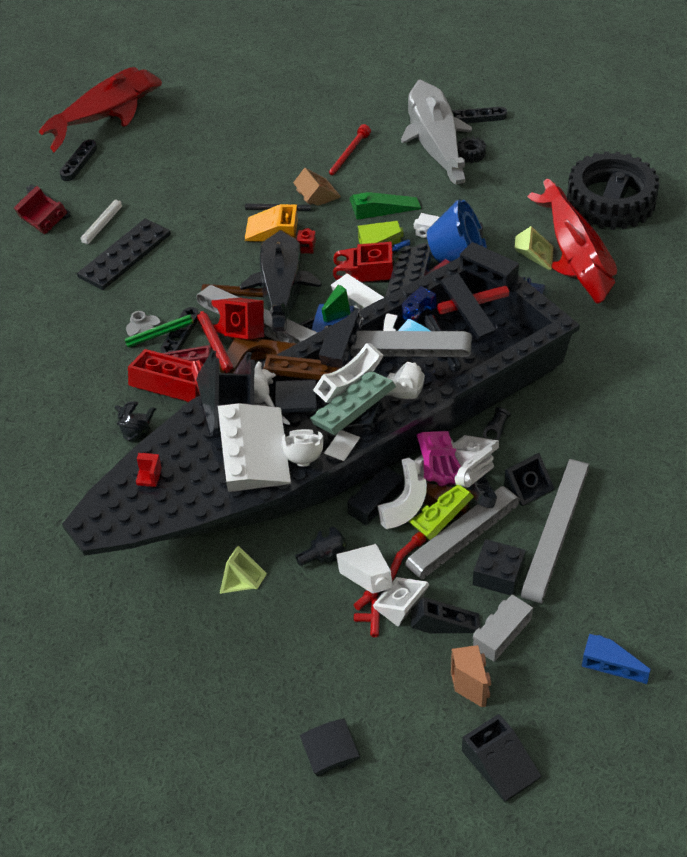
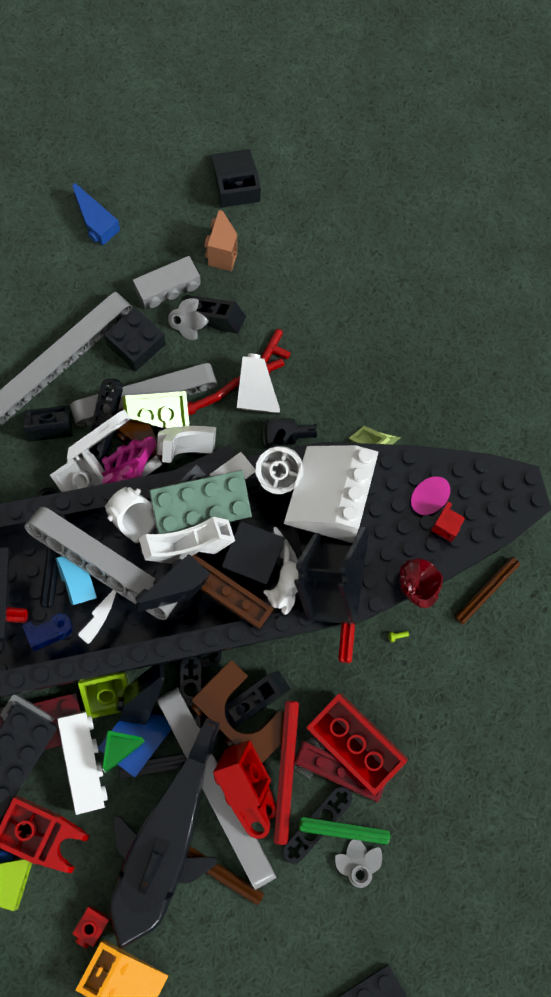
camera: 165 degrees left, 25 degrees up
(133, 424) = (419, 689): black helmet -> none
(157, 421) = (420, 582): none -> dark red hair
(170, 490) = (430, 495): none -> dark pink sticker
(330, 746) = (365, 244): black slope -> none
(399, 600) = (239, 341): white slope -> none
(470, 602) = (190, 319): none -> light grey plate

